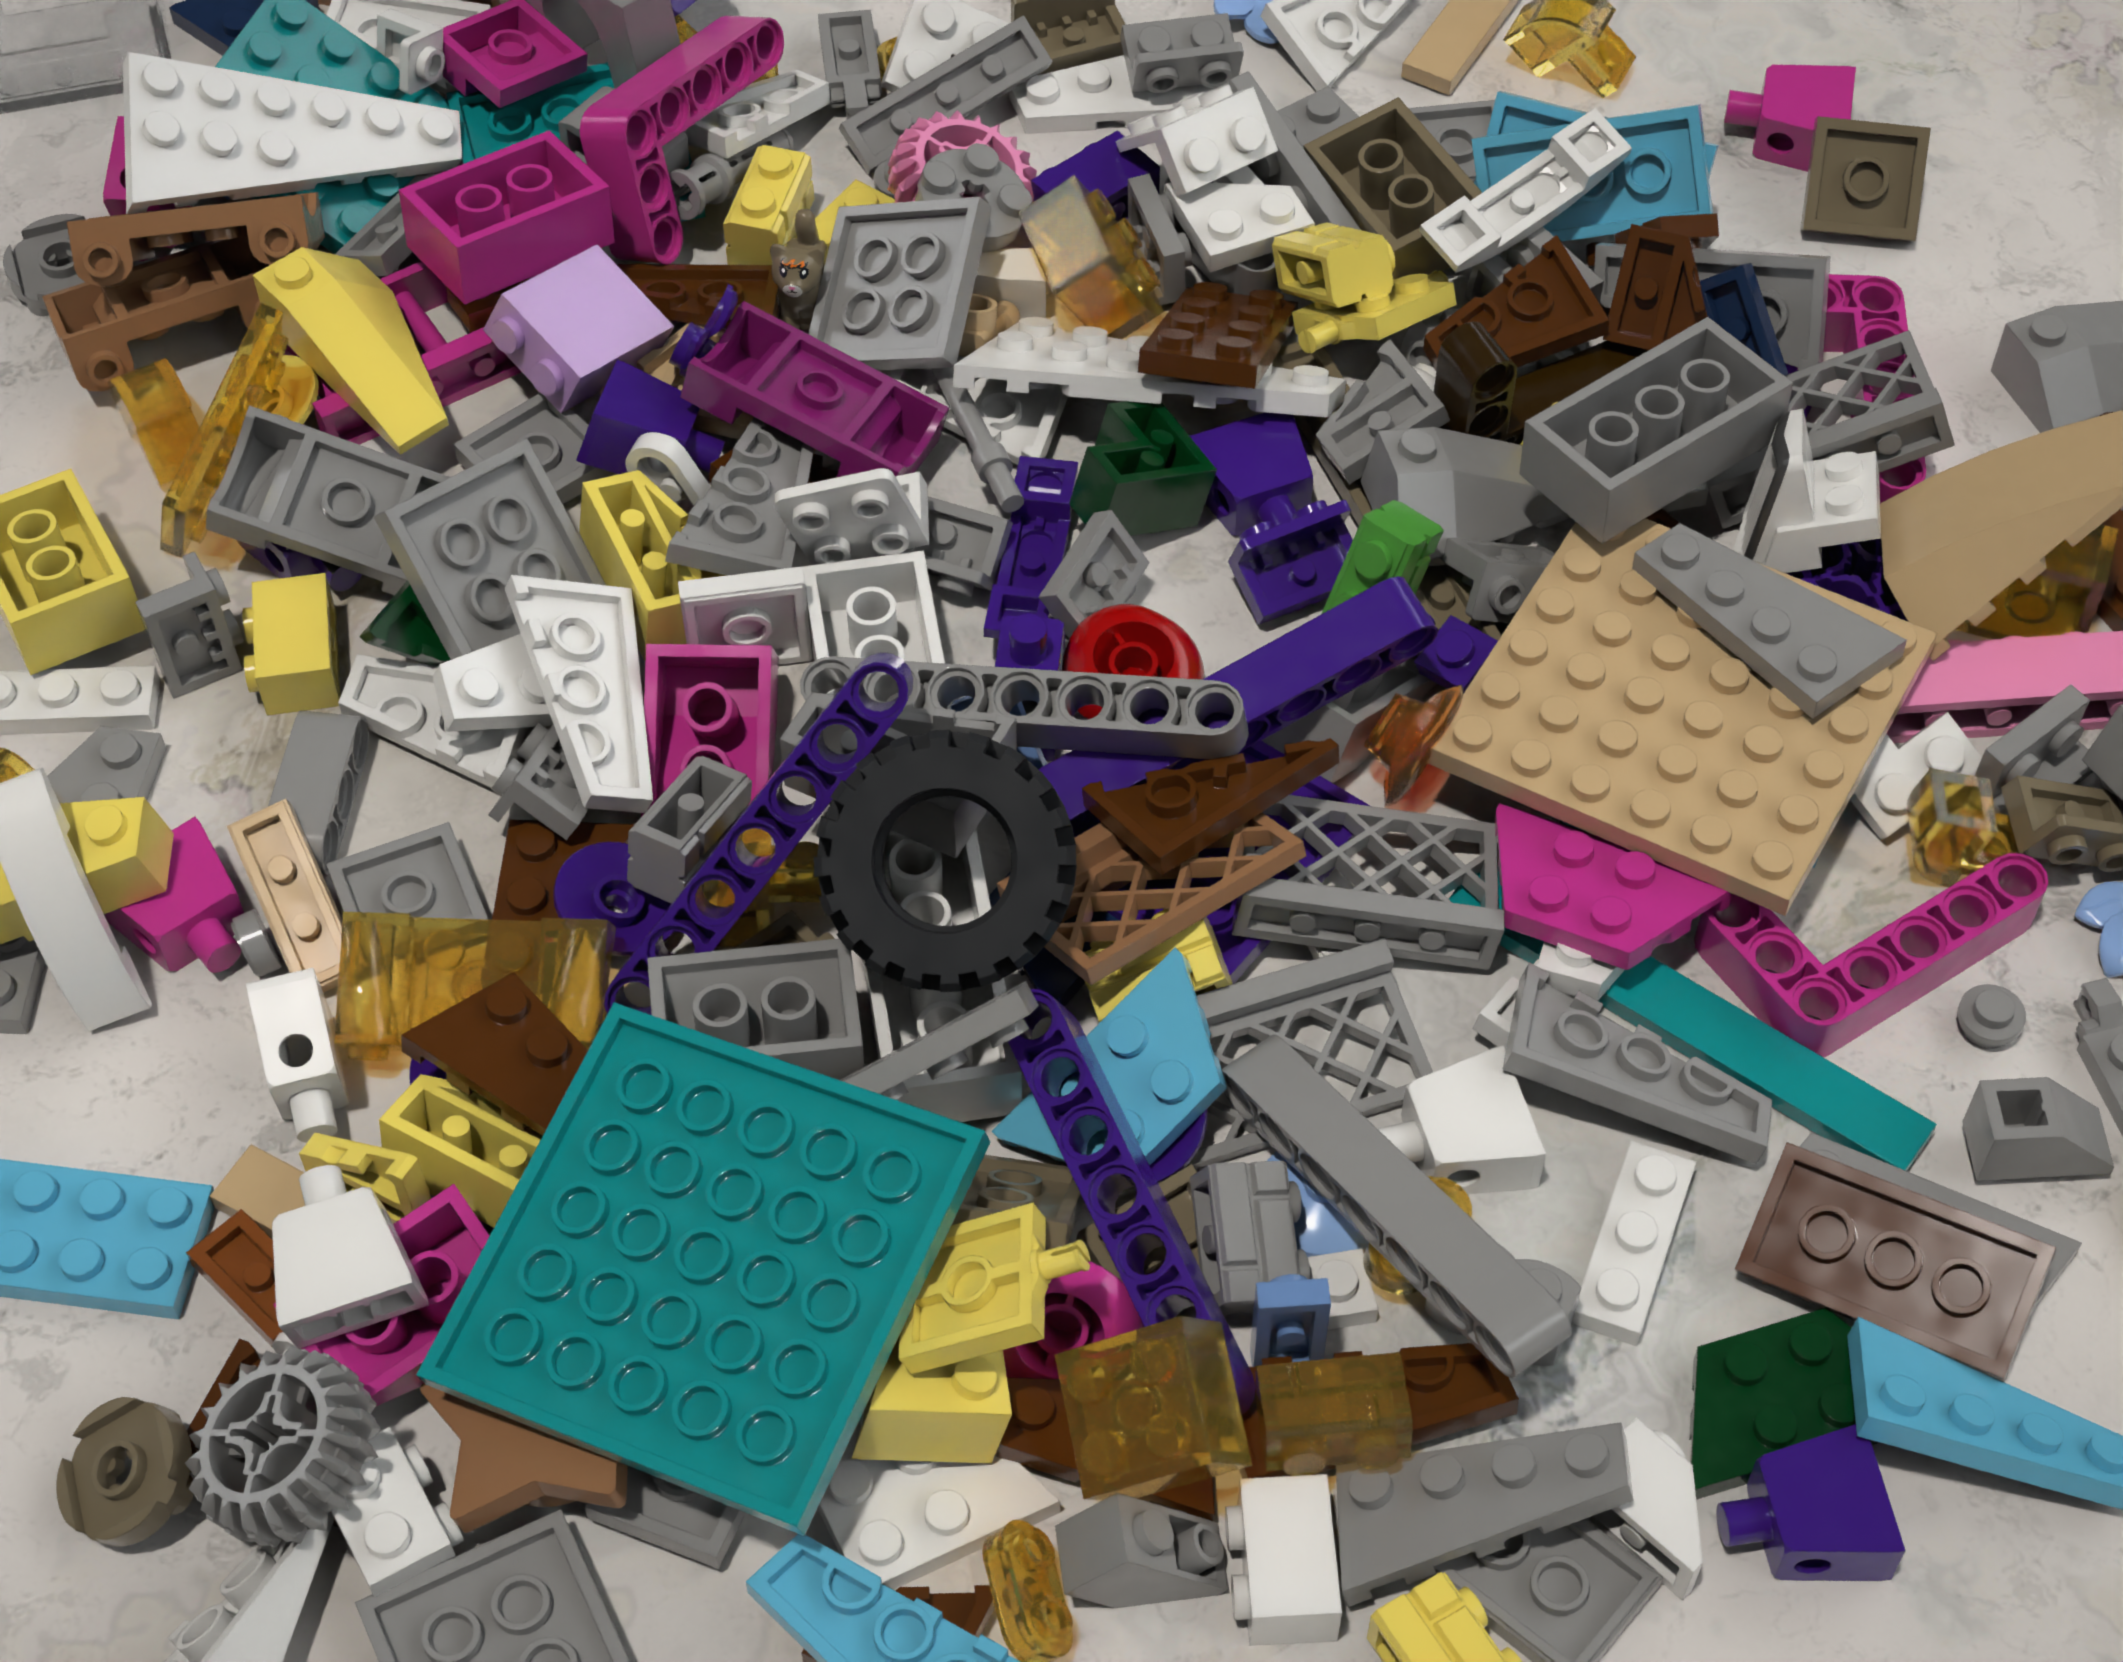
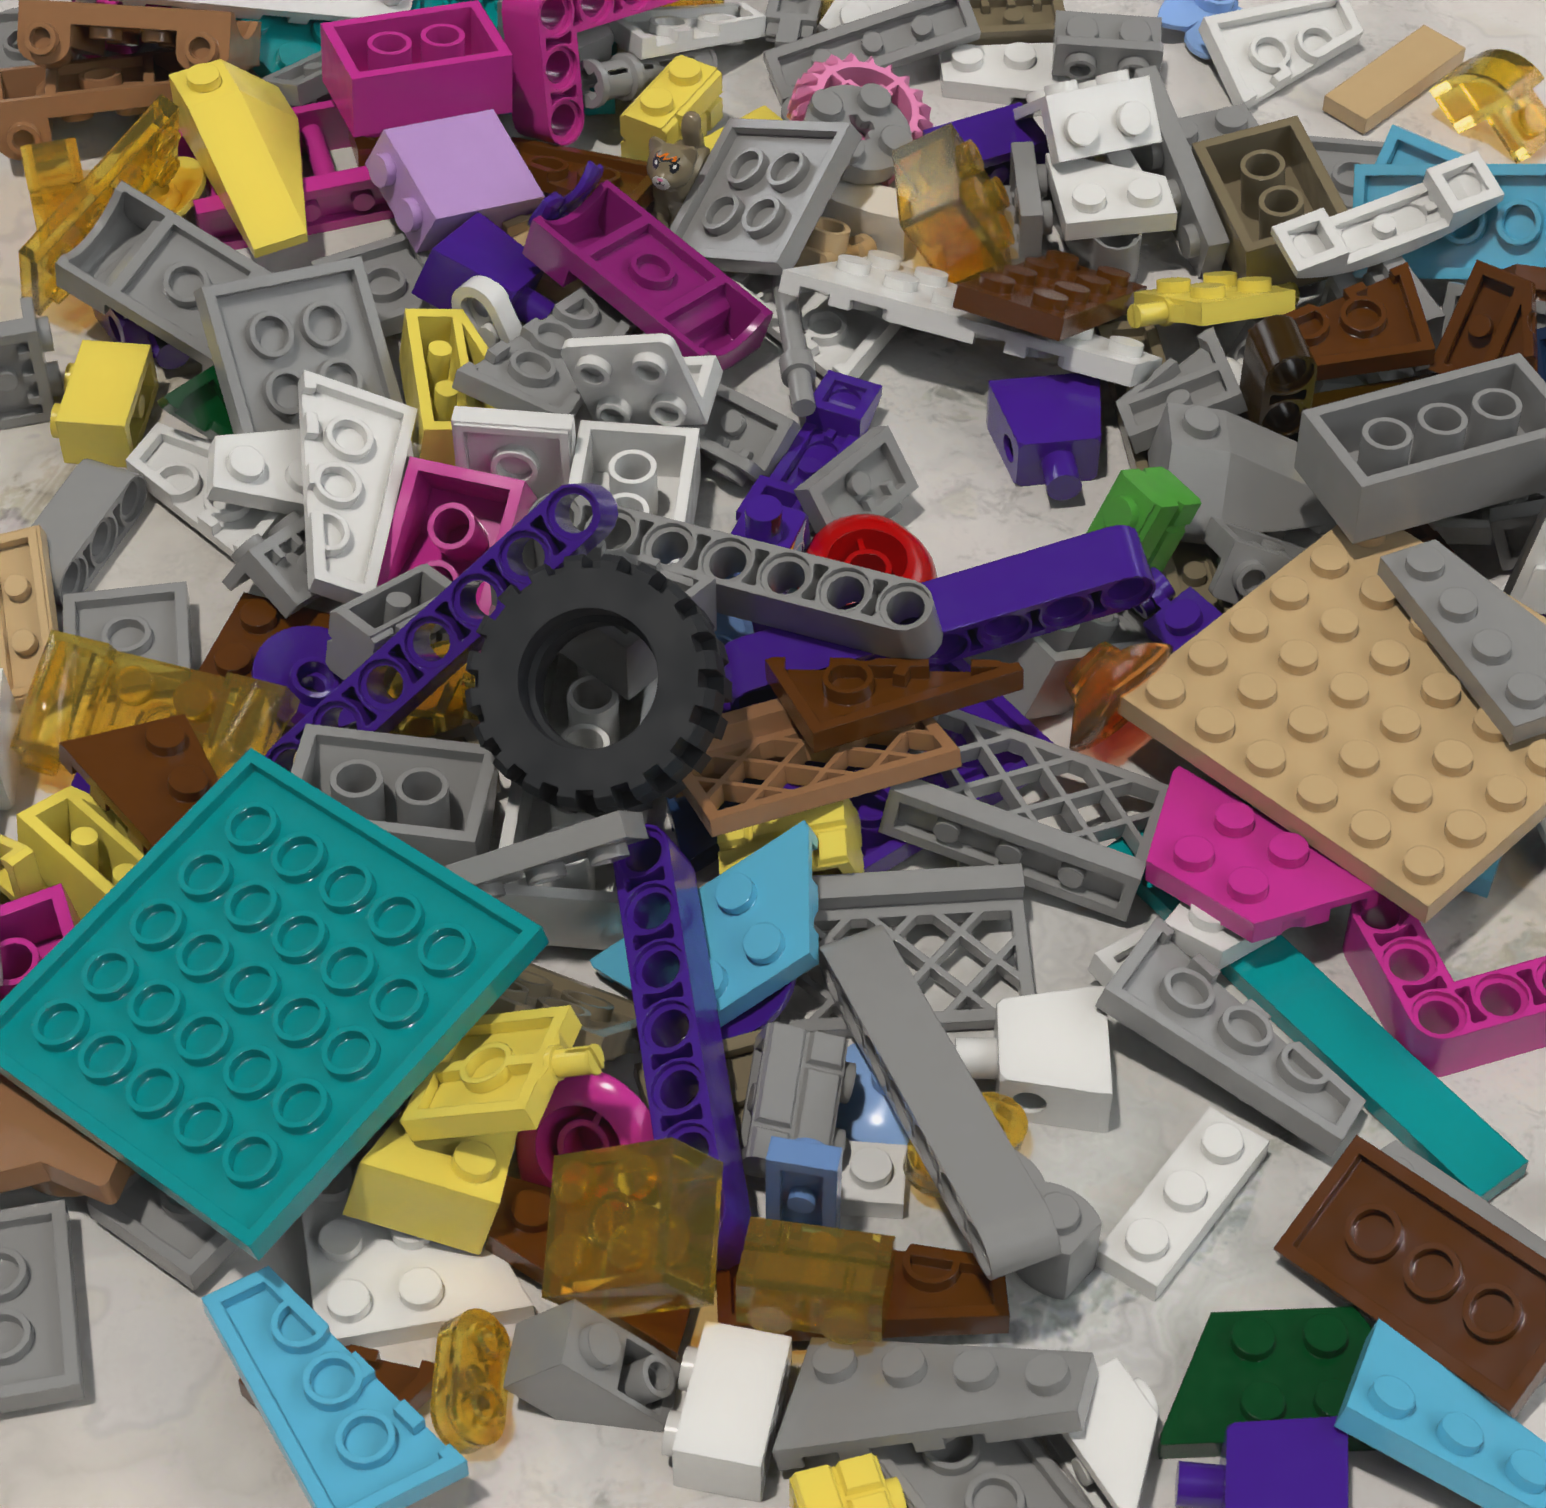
camera: 15 degrees right, 5 degrees down
(1143, 471) = (938, 404): dark green brick -> none
(1293, 561) = (1052, 504): dark purple bracket -> none
(1333, 264) = (1182, 251): light yellow brick -> none

